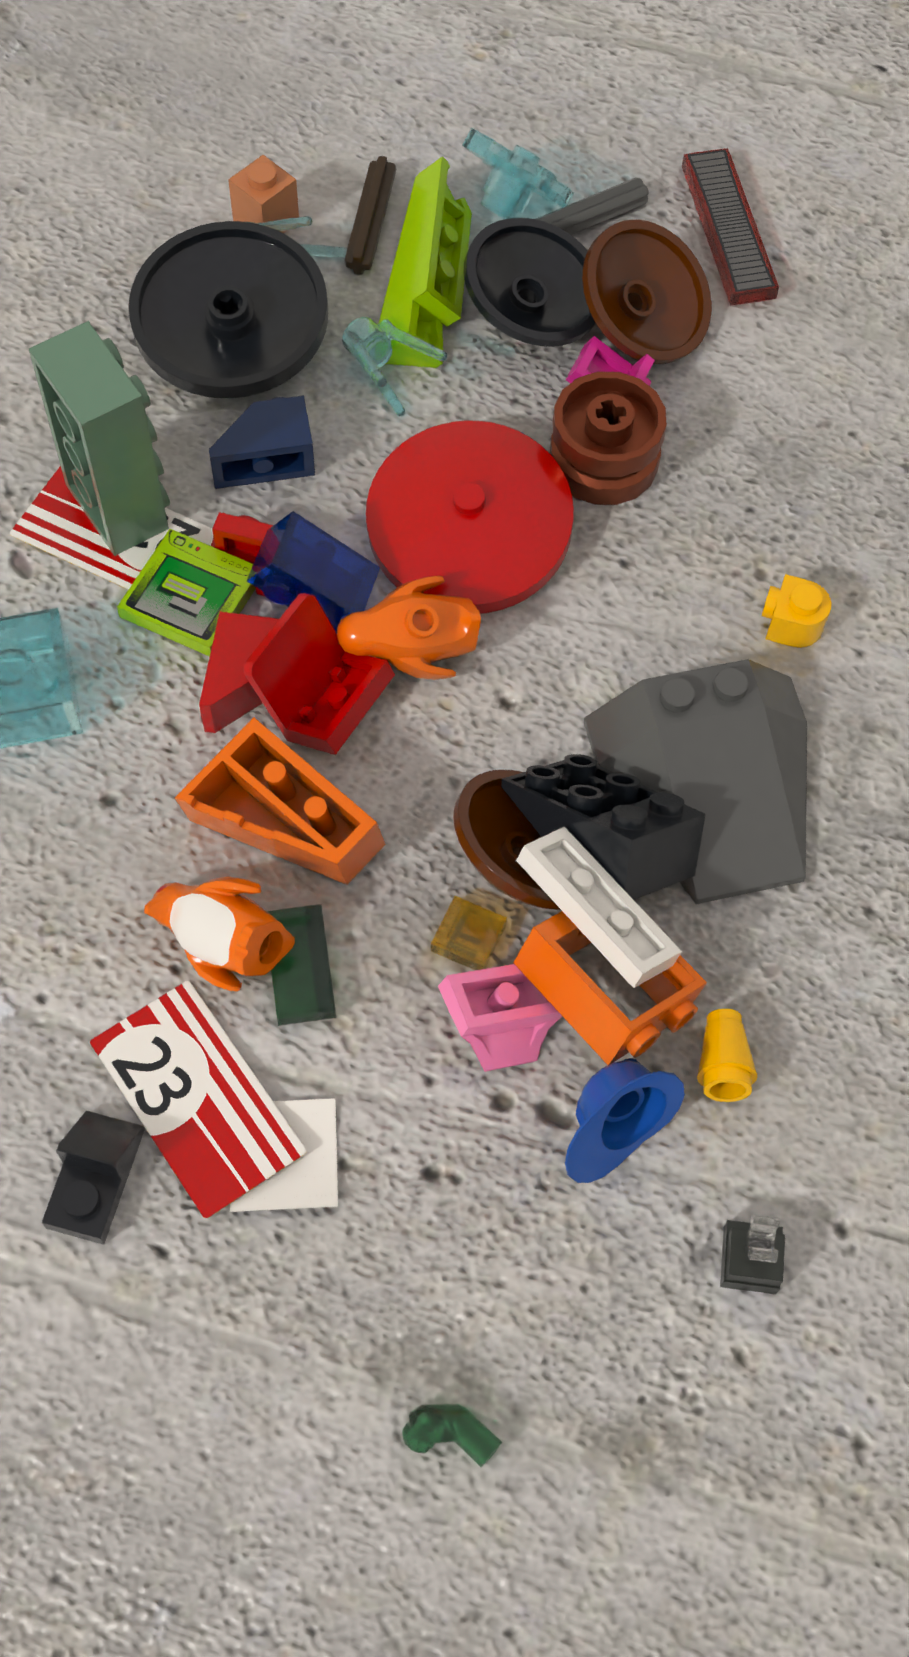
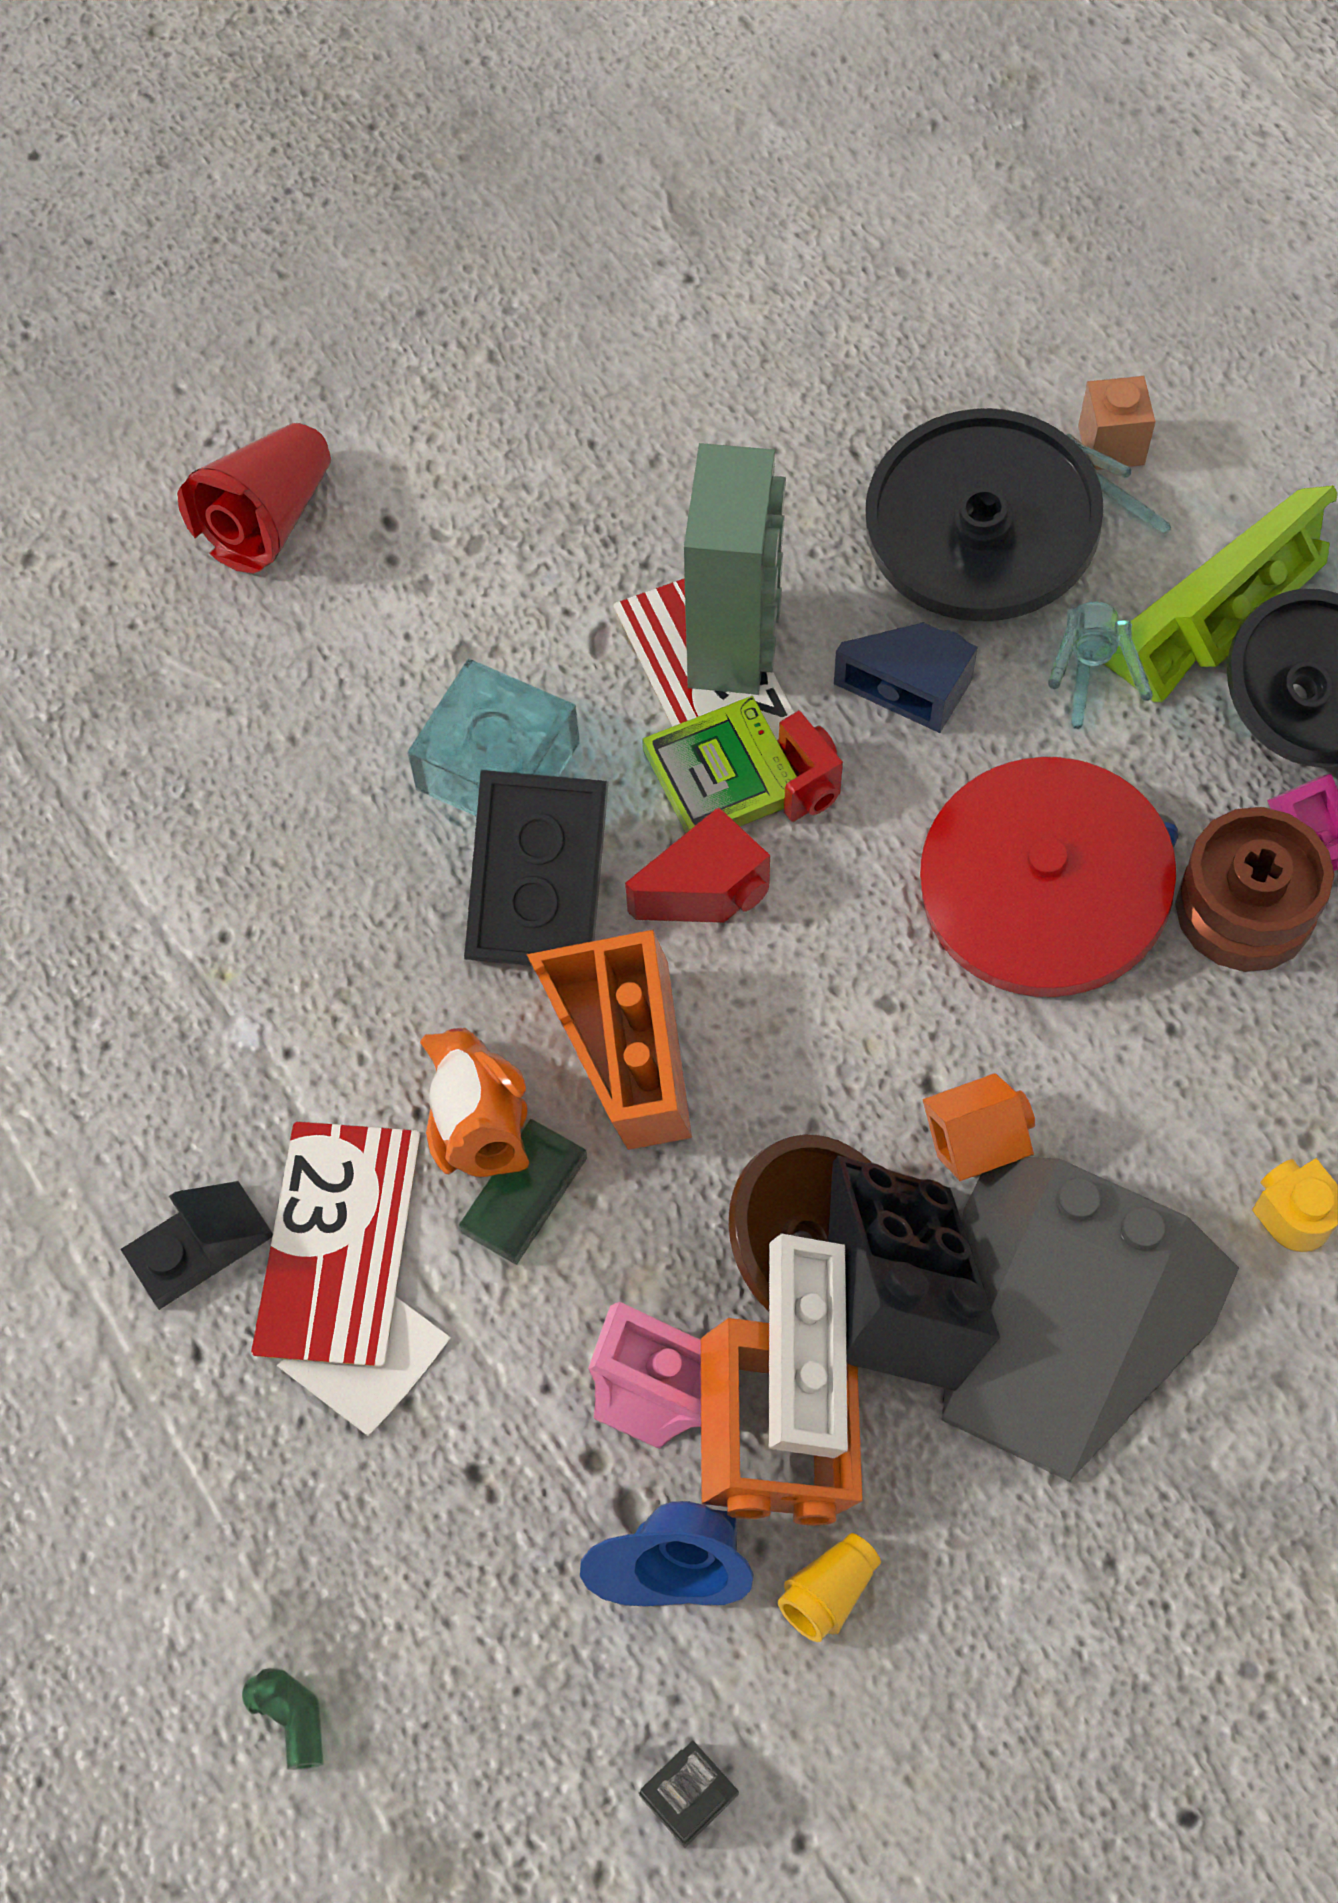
camera: 45 degrees right, 0 degrees up
(122, 738) = (534, 865): none -> black tile
(307, 560) = (834, 831): clear blue brick -> none
(310, 681) = (752, 929): red bracket -> none
(370, 215) = (1217, 502): dark brown axle -> none
(414, 629) = (886, 949): orange animal -> none
(468, 934) = (696, 1281): clear yellow tile -> none
(568, 700) = (980, 1126): none -> orange brick

